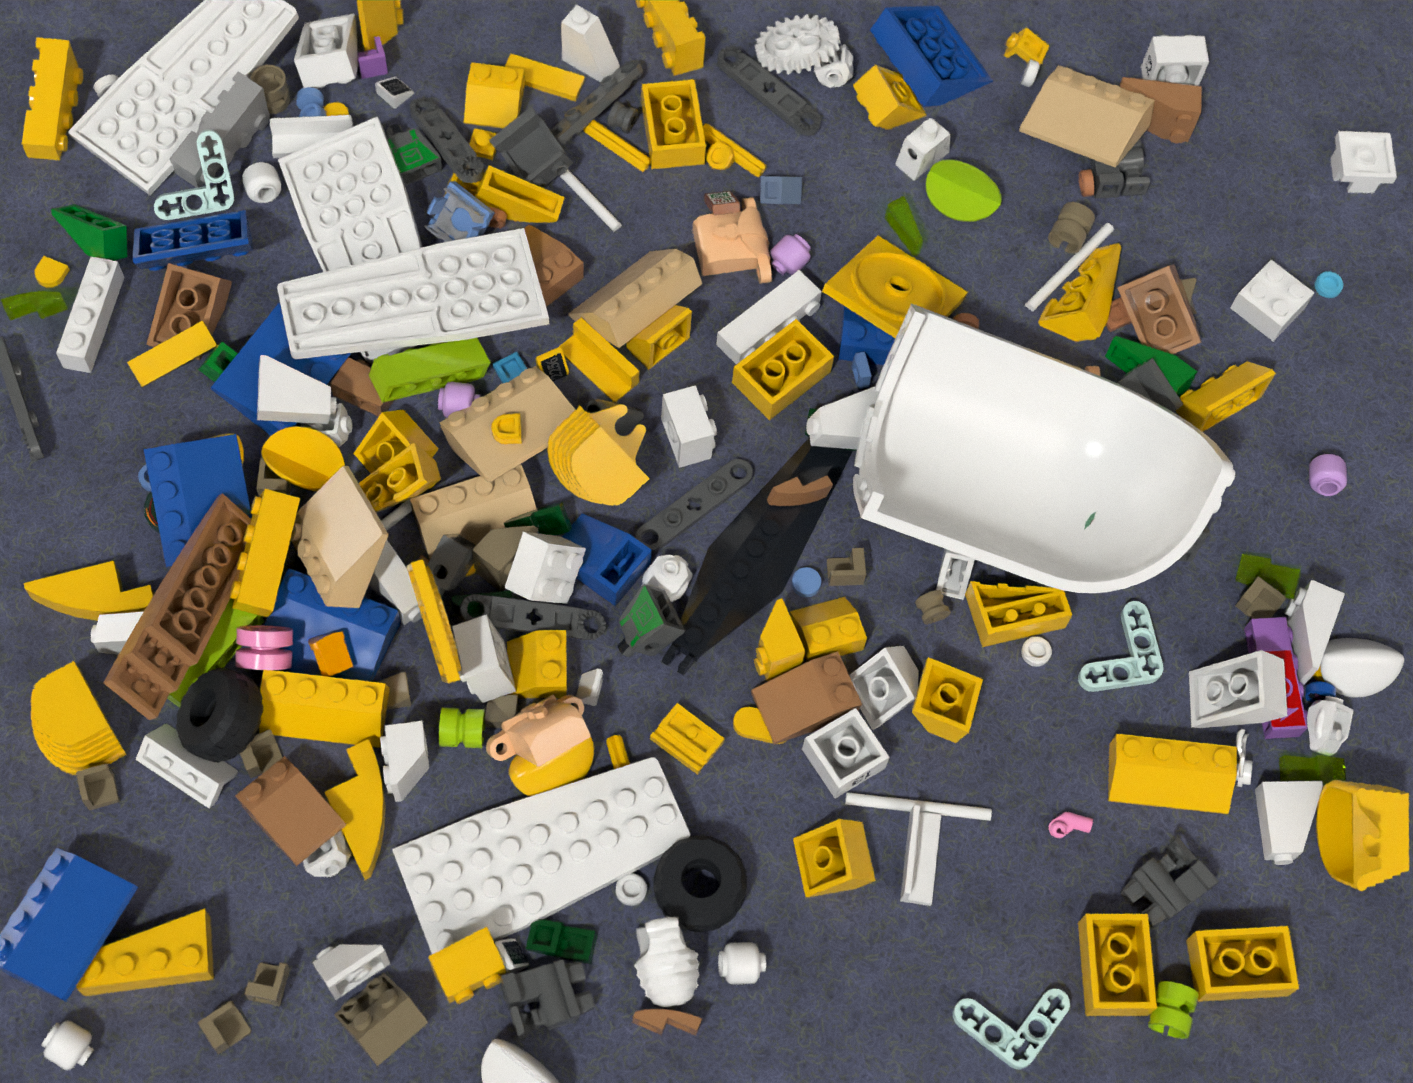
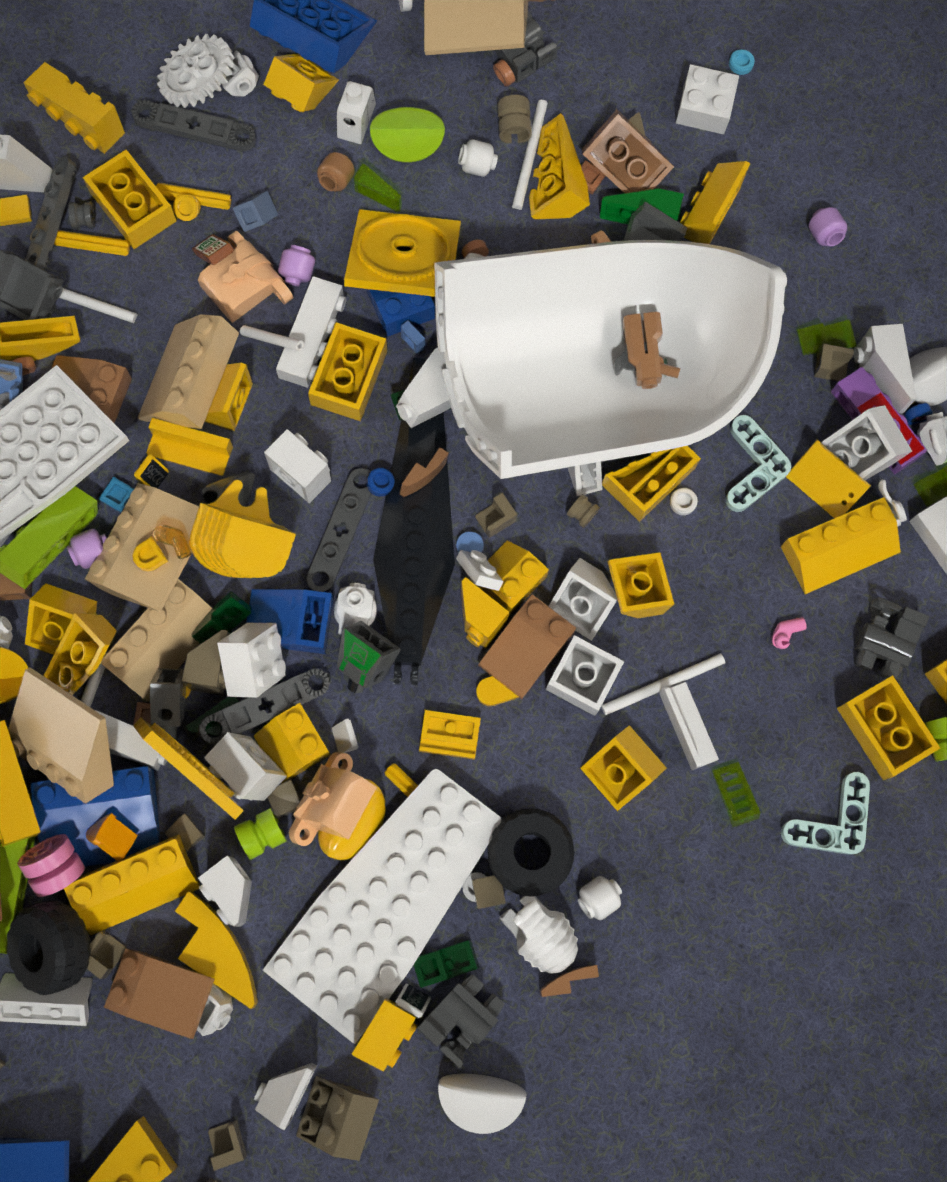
camera: 30 degrees left, 10 degrees up
(538, 424) = (173, 537): none -> clear yellow arm
(638, 896) = (488, 892): none -> dark tan slope
(730, 304) = (272, 338): none -> white piece
(755, 481) = (380, 482): none -> blue tile
(801, 603) = (479, 569): none -> white plate
(875, 192) = (335, 172): none -> medium nougat head
(925, 965) = (744, 817): none -> clear neon green slope
(1016, 244) = (477, 158): none -> white head
(1070, 496) = (642, 354): none -> medium nougat piece
(1190, 703) = (827, 480): none -> yellow container

